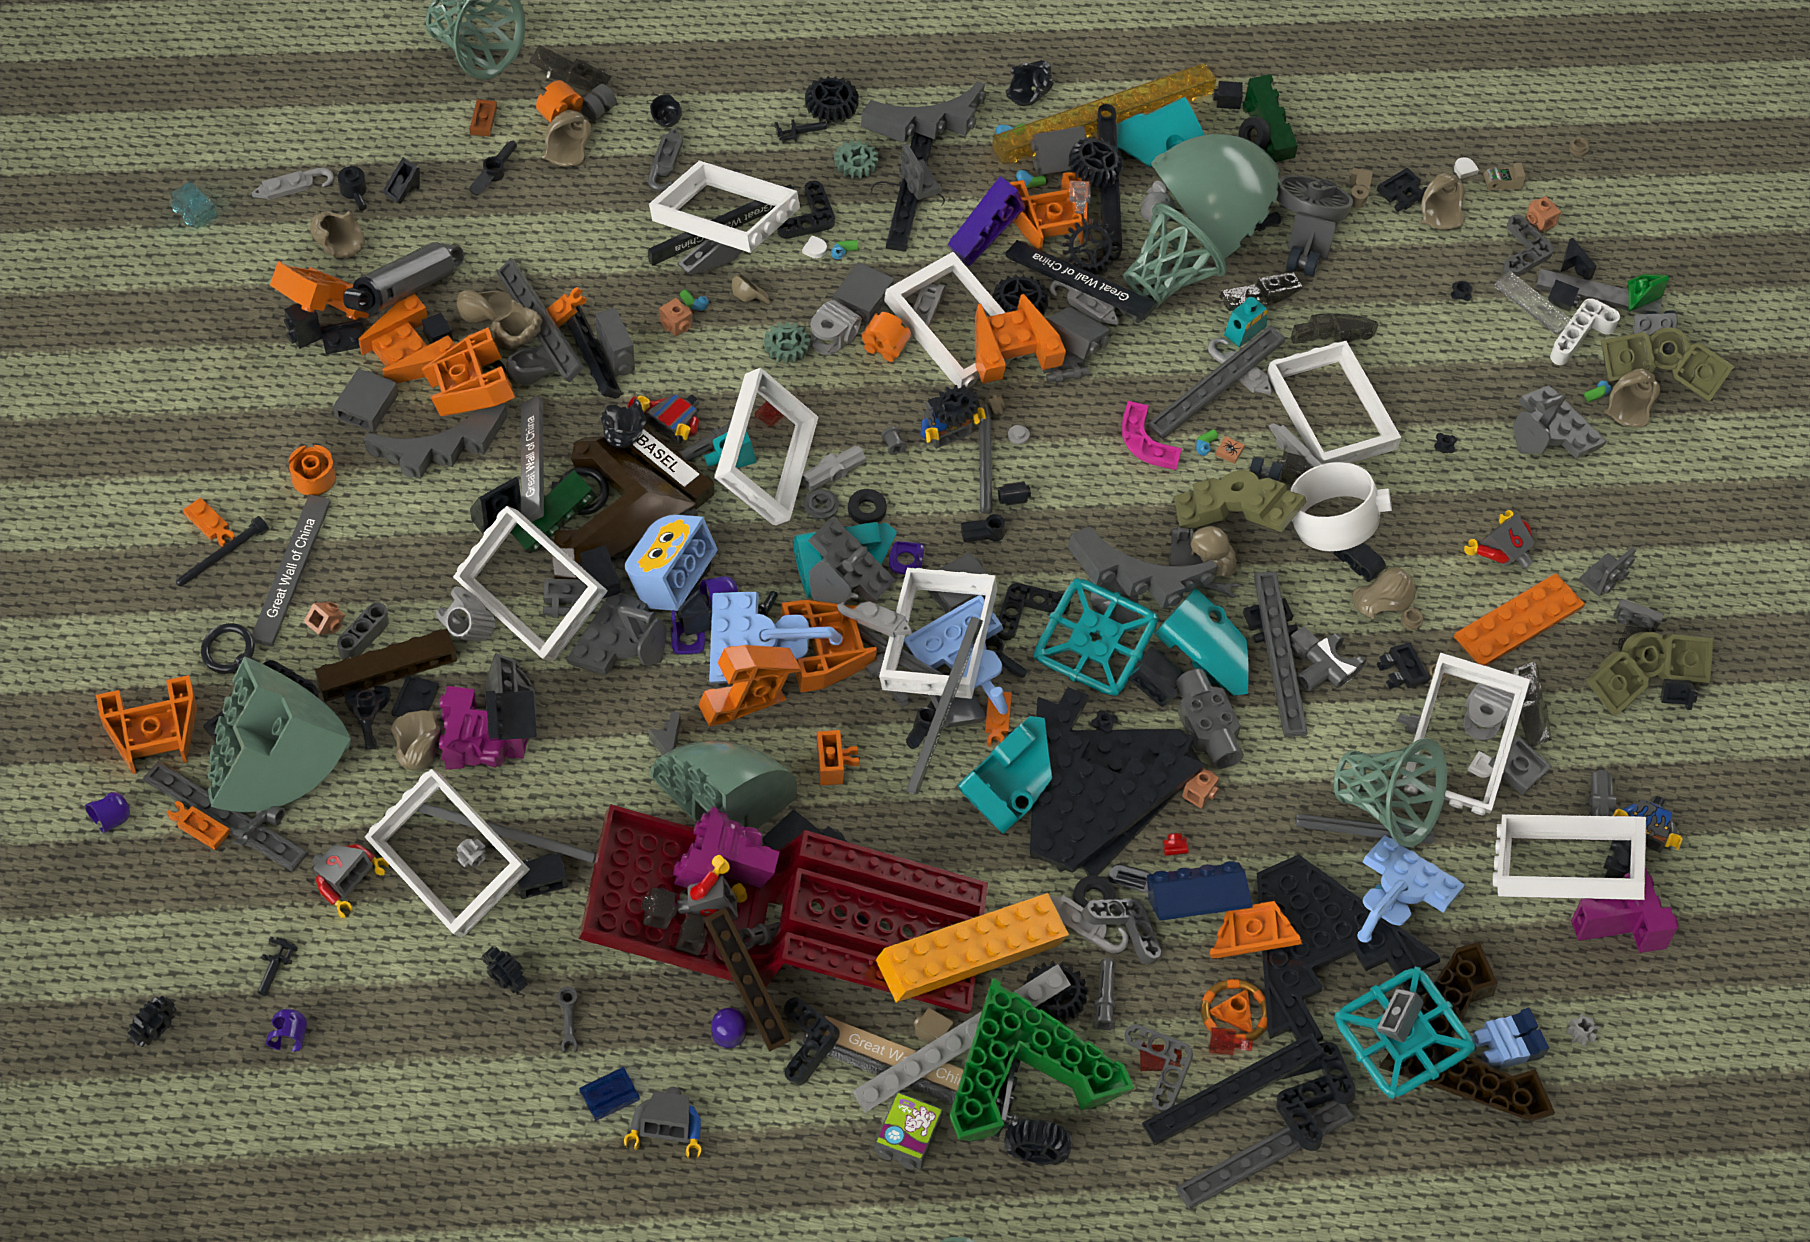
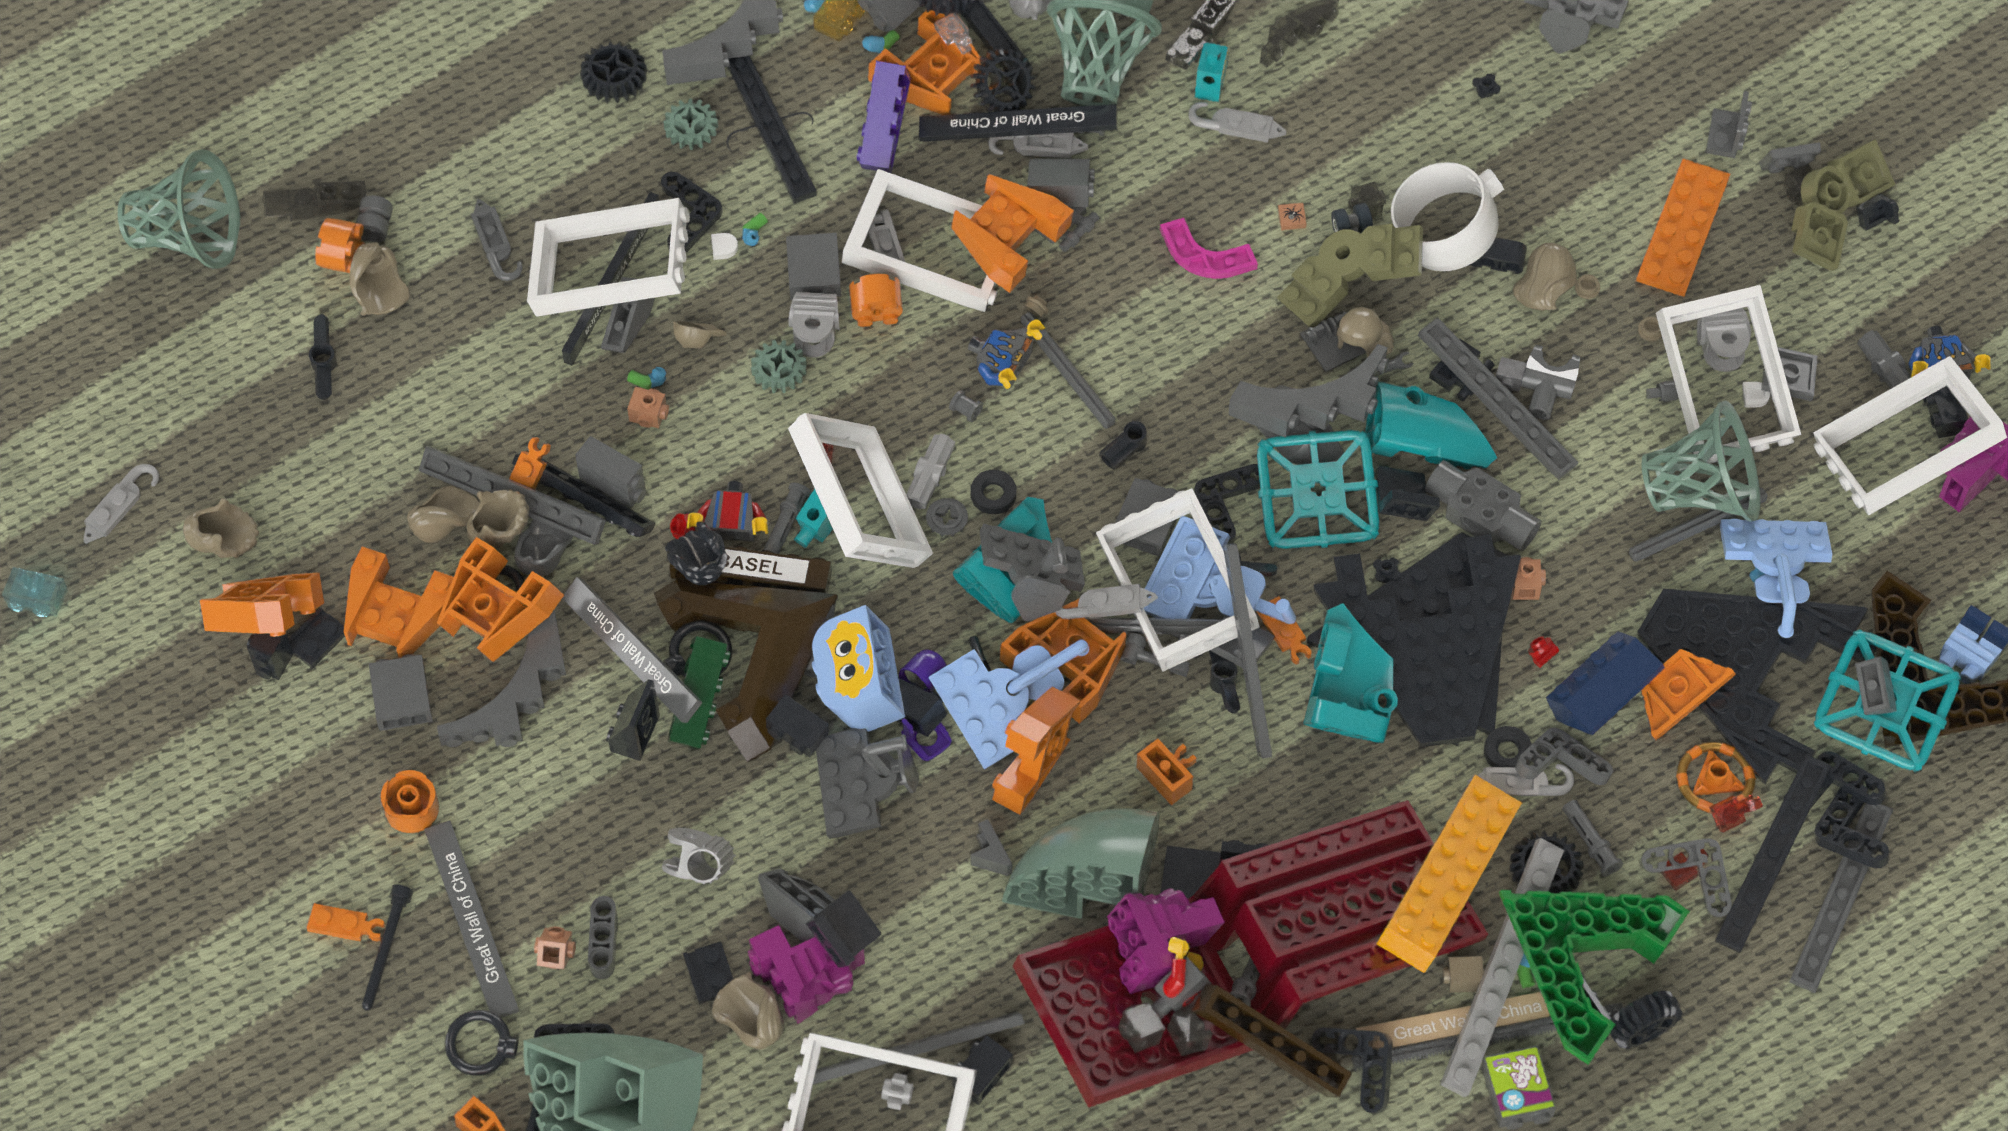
camera: 30 degrees left, 5 degrees up
(353, 185) = (187, 466): black piece -> none
(365, 706) = (675, 1011): black animal -> none
(386, 664) = (654, 956): dark brown brick -> none
(403, 178) = (239, 429): black slope -> none
(403, 277) = (339, 536): dark grey piece -> none
(436, 328) = (412, 572): black brick -> none
(483, 117) = (264, 307): dark orange plate -> none
(484, 550) = (661, 783): white window -> none
(561, 591) = (770, 766): dark grey plate -> none
(665, 107) = (454, 181): black hair -> none
(728, 1027) = (1279, 1099): dark purple helmet -> none
(798, 130) = (603, 126): black piece -> none
(899, 547) = (1079, 508): dark purple piece -> none
(917, 175) = (771, 105): dark grey bracket -> none
(956, 405) = (1008, 330): black gear -> none
(1008, 293) = (973, 169): black gear -> none
(1014, 493) = (1125, 389): black brick -> none
(1018, 434) = (1080, 324): light grey plate -> none
(1129, 877) = (1526, 709): black piece -> none
(1203, 442) = (1261, 224): arm -> none
(1216, 382) = (1230, 153): dark grey tile -> none
(1291, 444) = (1351, 176): light grey plate -> none
(1320, 357) = (1374, 77): white window -> none
(1408, 664) = (1618, 335): black plate -> none
(1506, 542) = (1618, 154): dark grey torso -> none
(1534, 710) = (1783, 327): clear smoke slope -> none

